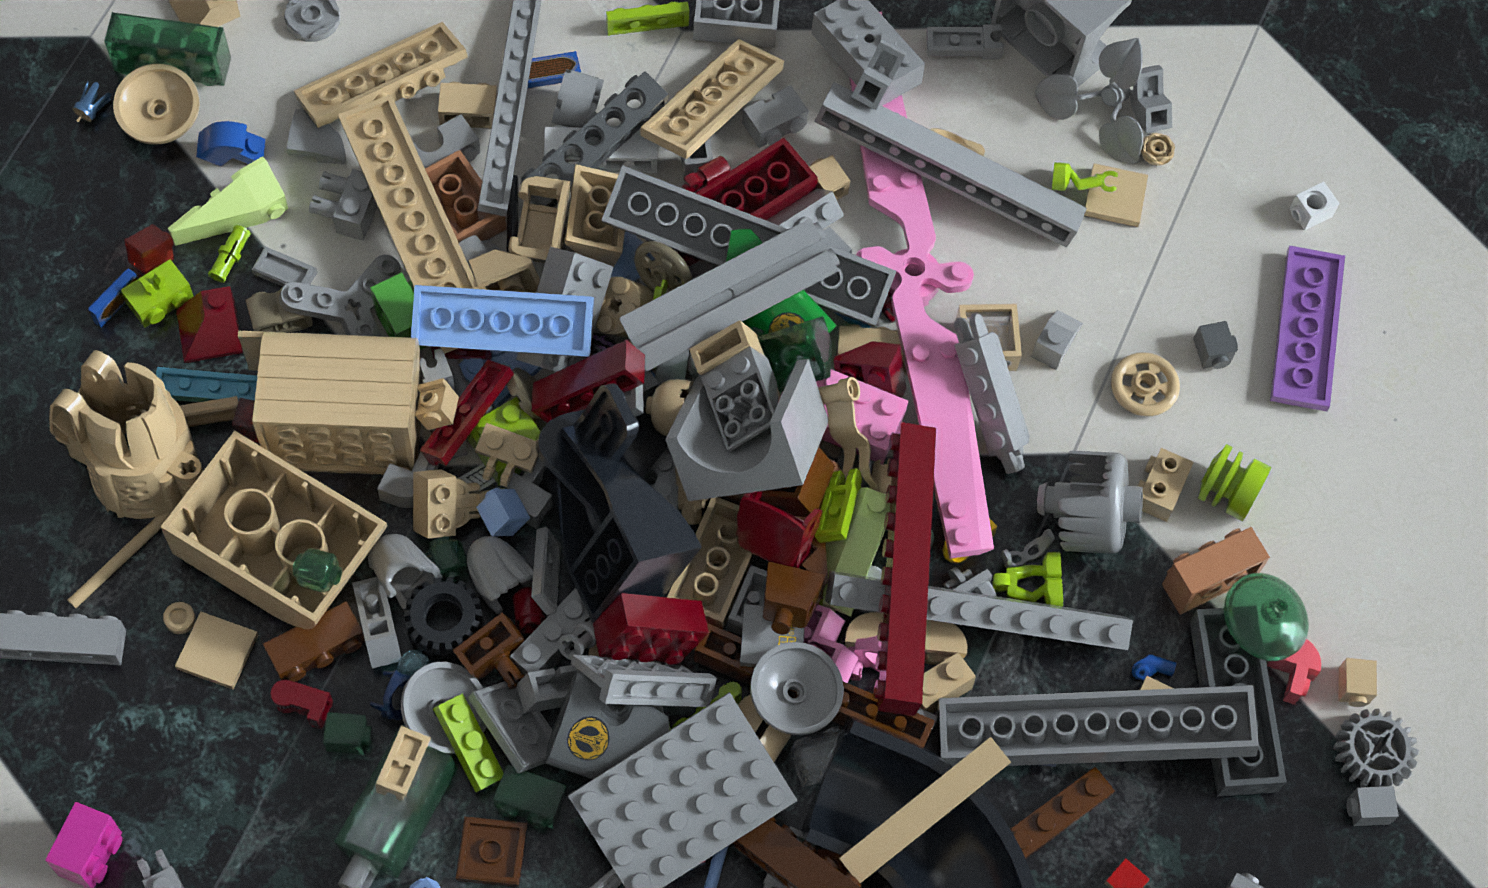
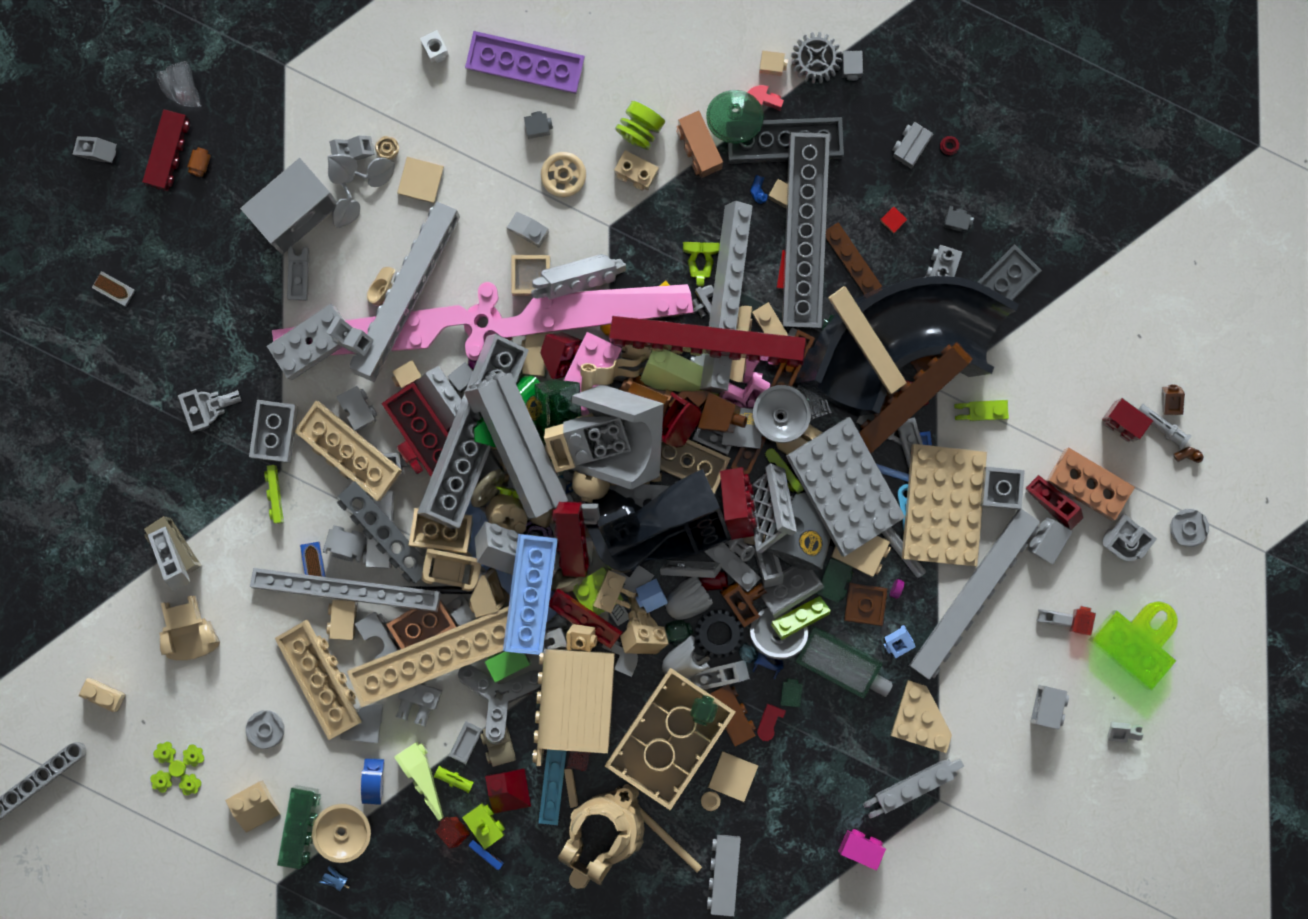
camera: 85 degrees left, 20 degrees up
(402, 763) = (821, 656): tan hinge -> none
(571, 847) = (866, 557): none -> tan brick
(838, 506) = (659, 381): lime hinge -> none
(1040, 543) = (674, 251): light grey cap -> none
(1063, 173) = (416, 202): lime piece -> none
(1094, 503) = (657, 217): light grey piece -> none

